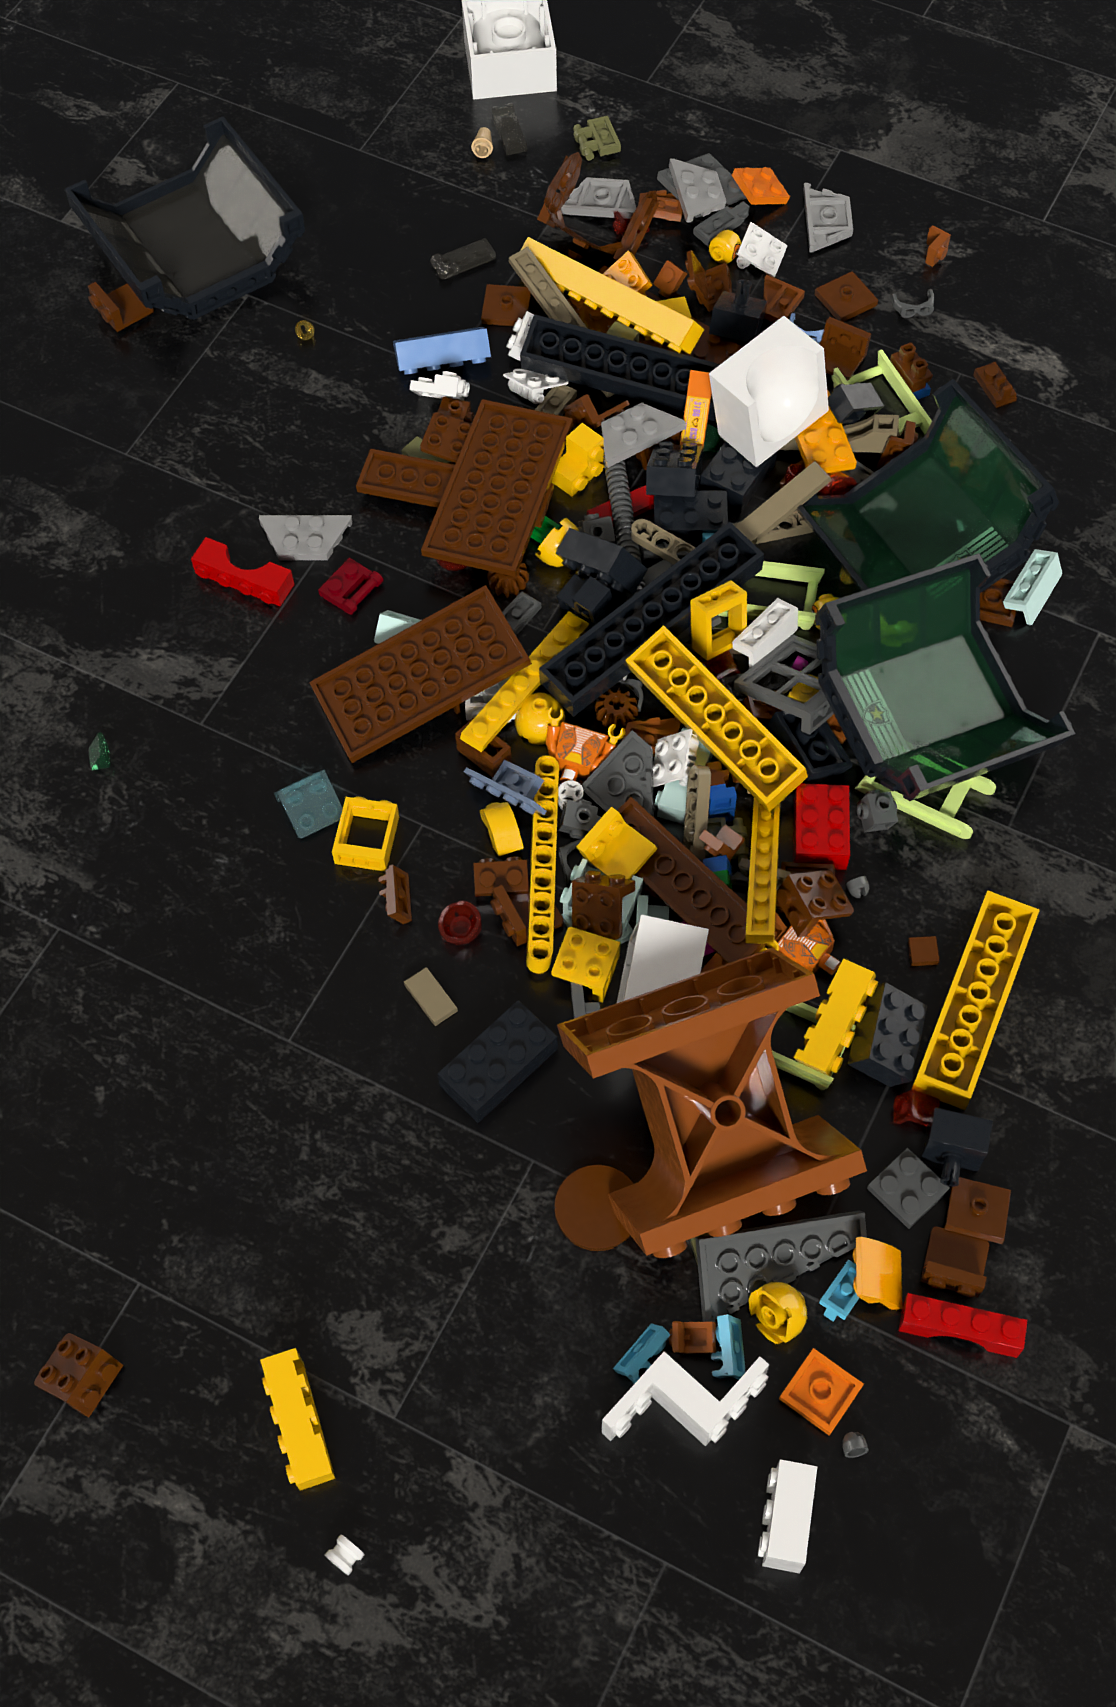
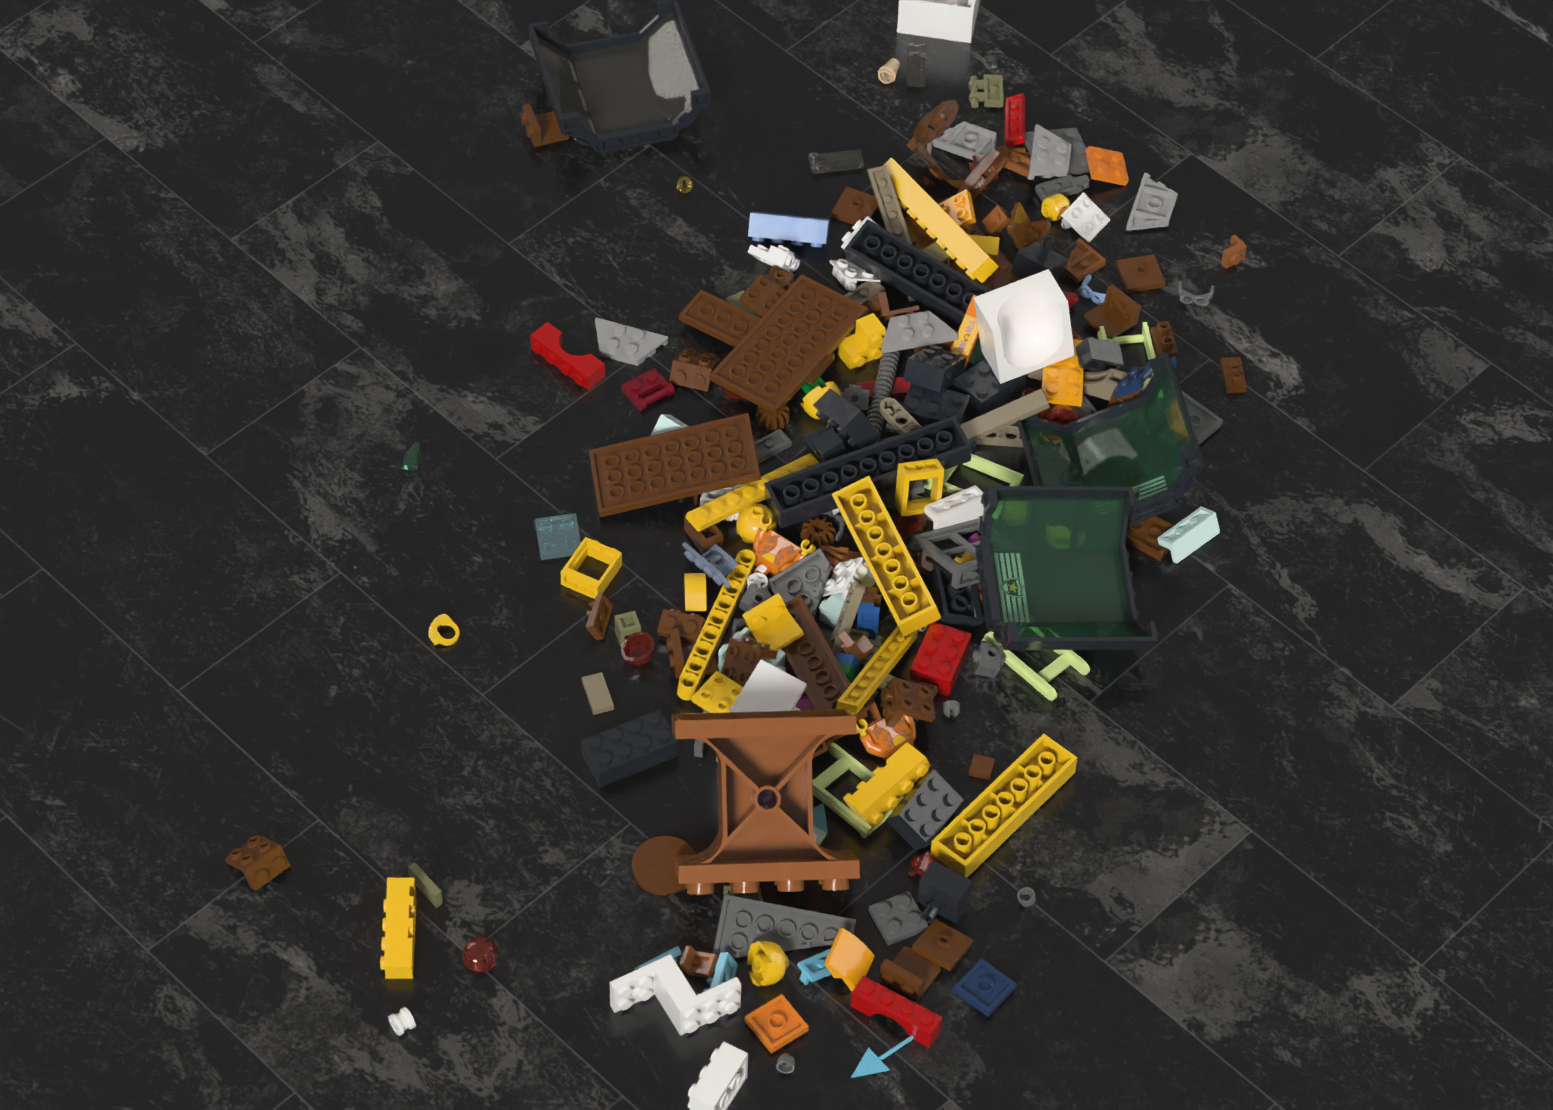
camera: 15 degrees right, 10 degrees down
(204, 981) = (436, 638): none -> yellow piece
(308, 1338) = (426, 885): none -> olive tile
(395, 546) = (693, 369): none -> reddish brown bracket
(411, 1415) = (479, 951): none -> clear red helmet
(435, 898) = (626, 624): none -> olive panel
(642, 161) = (1015, 120): none -> red tile
(913, 420) = (1133, 381): none -> dark blue plate
(957, 1407) = (872, 1064): none -> medium azure piece
(1051, 1252) = (984, 987): none -> dark blue plate
(1054, 1106) = (1021, 896): none -> dark grey hinge

